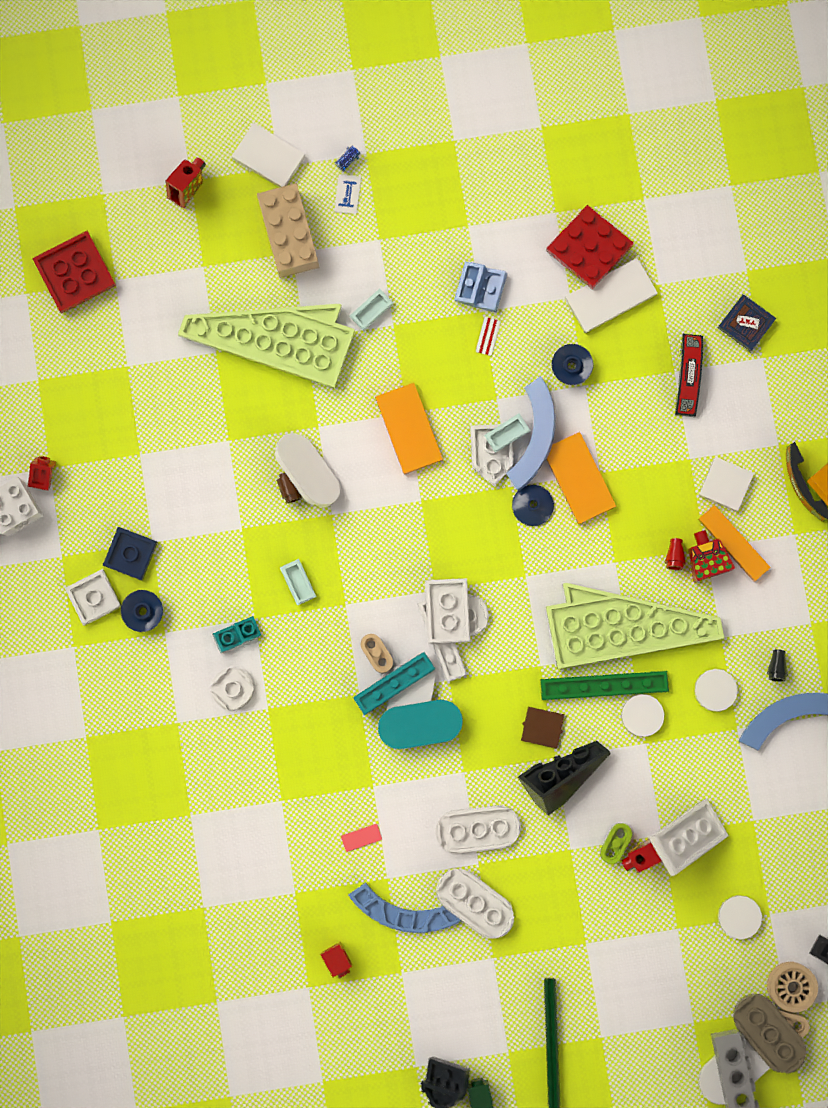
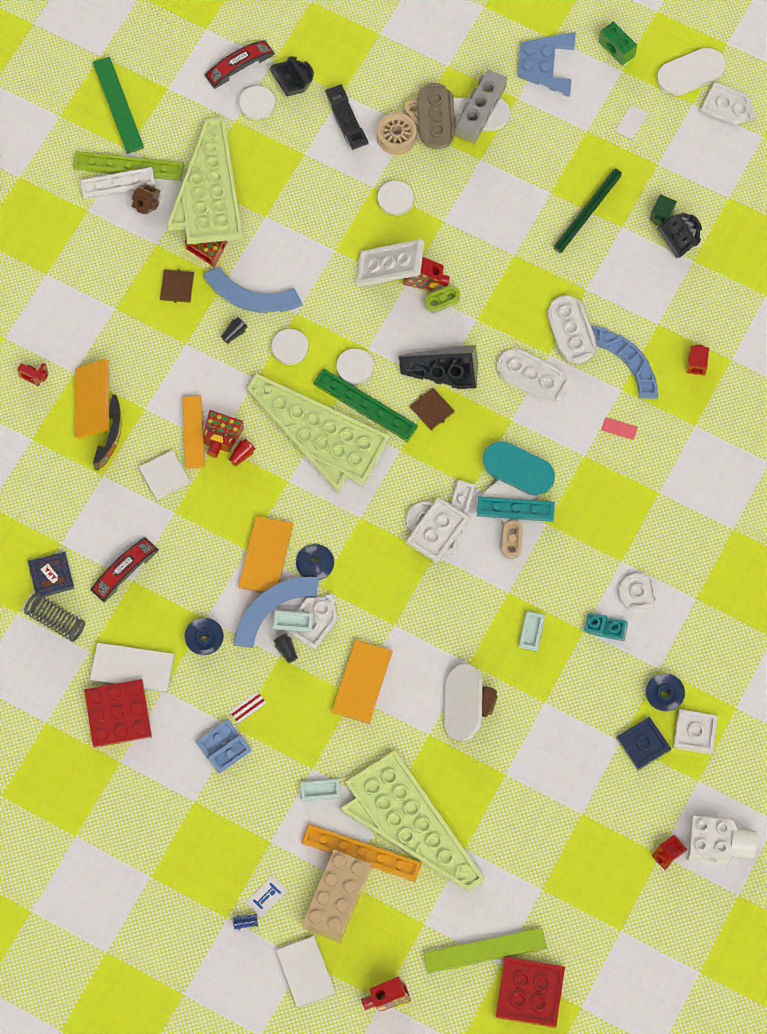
camera: 145 degrees left, 15 degrees down
(136, 279) = (485, 950): none -> lime tile
(297, 284) = (377, 857): none -> light orange tile
(497, 408) = (286, 648): none -> black cone
(682, 284) = (36, 602): none -> dark grey piece

